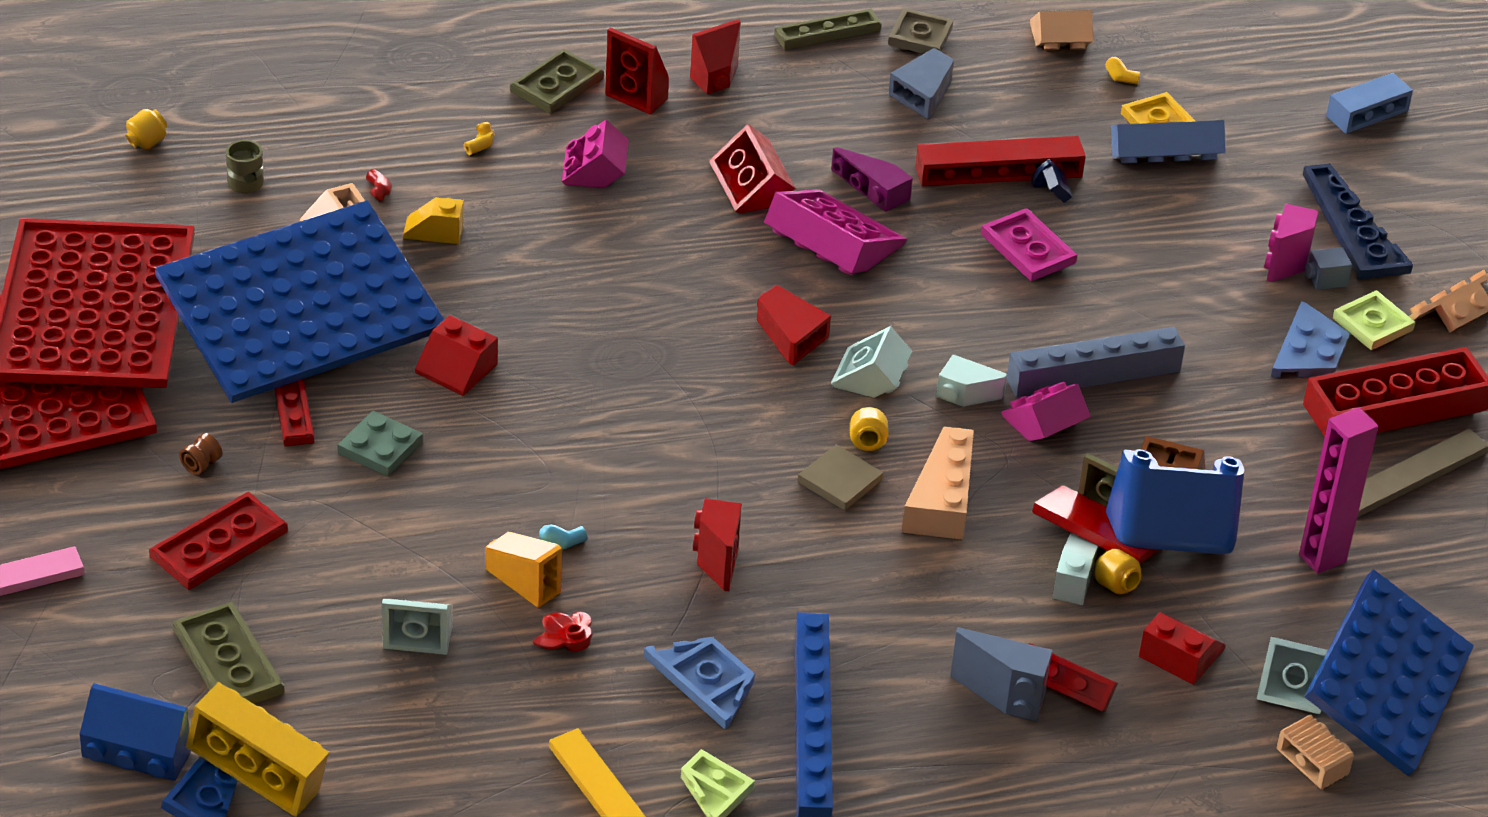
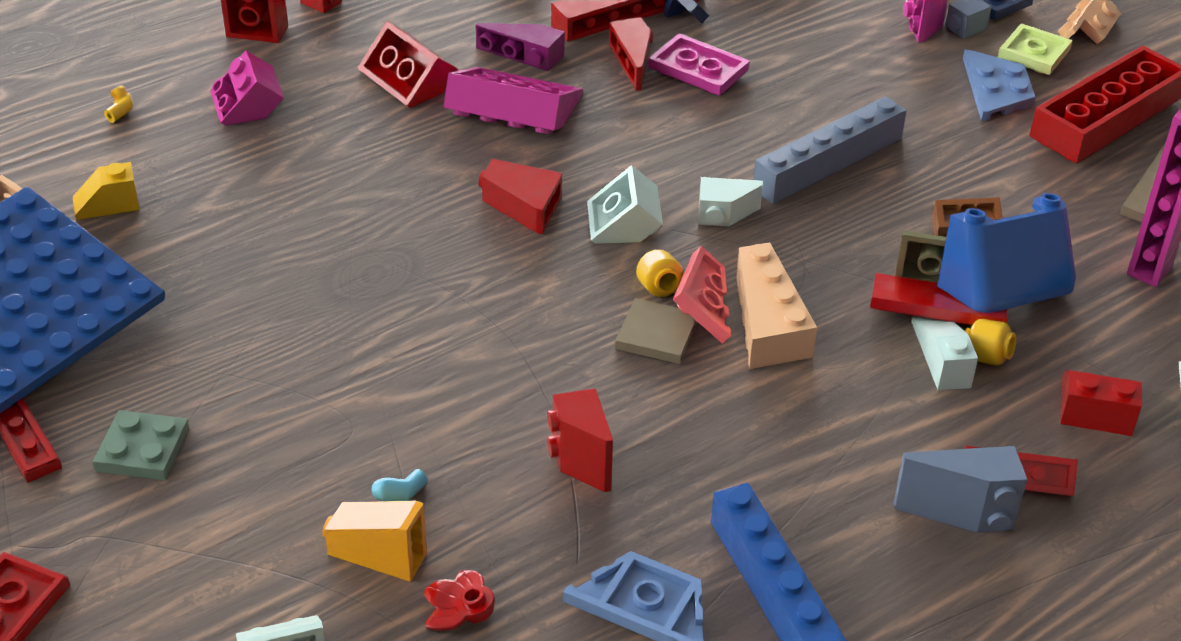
camera: 20 degrees left, 0 degrees up
(382, 184) = (32, 173): red arm -> none
(458, 355) = (190, 322): red slope -> none
(556, 81) = (172, 35): olive tile -> none
(896, 456) = (702, 293): none -> coral wing
(975, 209) = (631, 45): none -> slope
(1047, 411) = (818, 206): dark pink slope -> none

